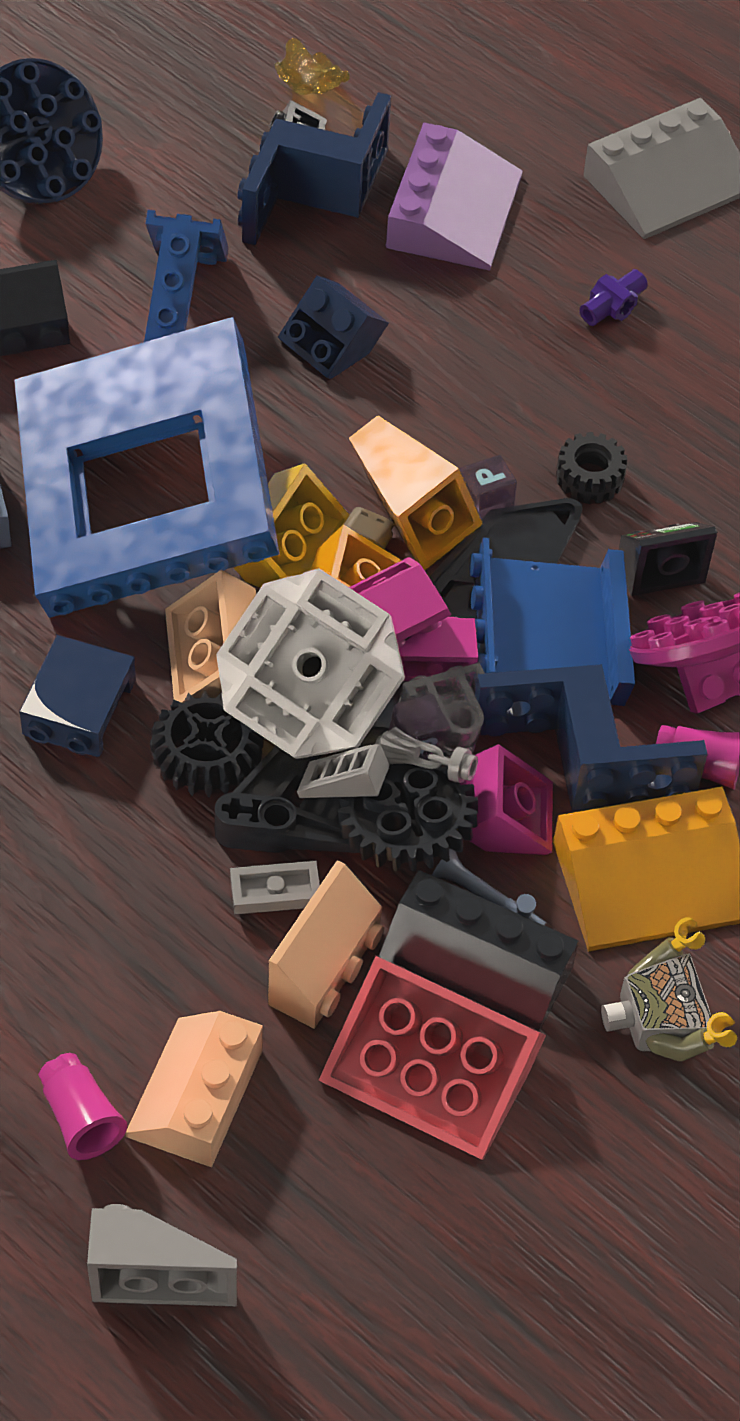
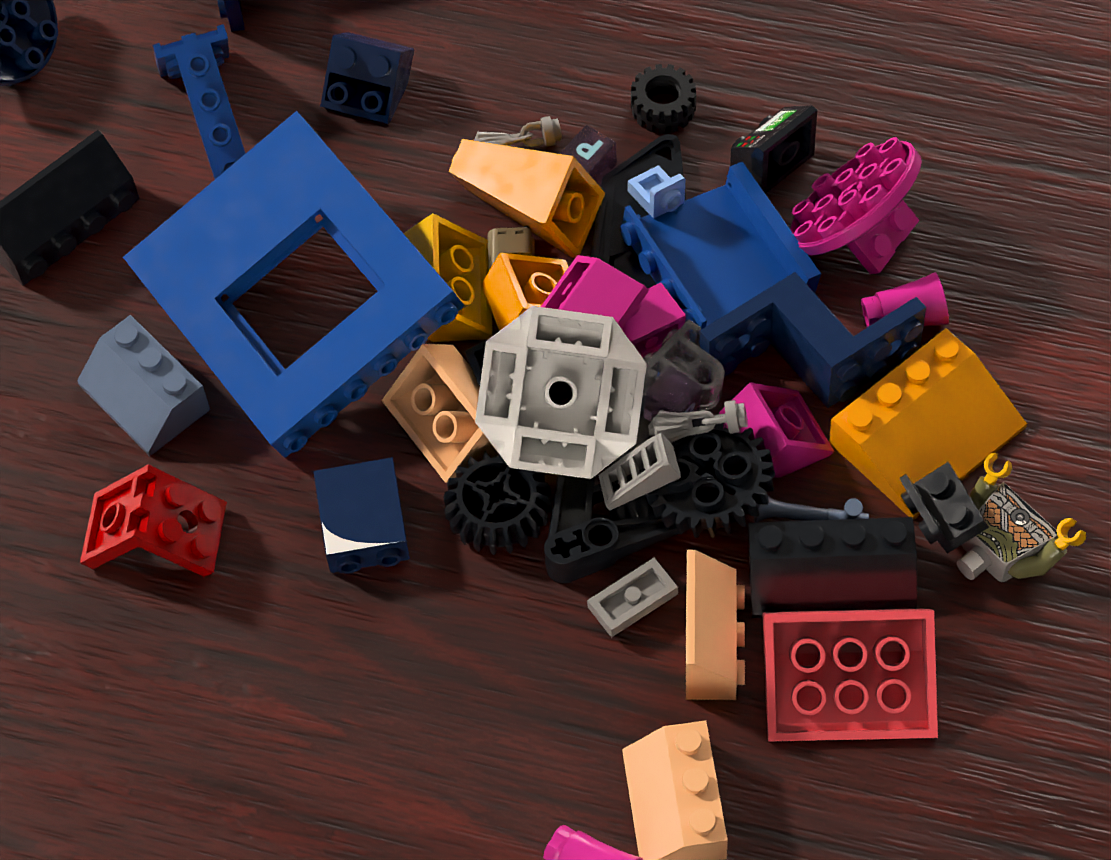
camera: 20 degrees left, 5 degrees up
(468, 448) = (549, 127): none -> light grey piece
(529, 542) = (657, 191): none -> light blue bracket
(614, 947) = (945, 508): none -> black bracket

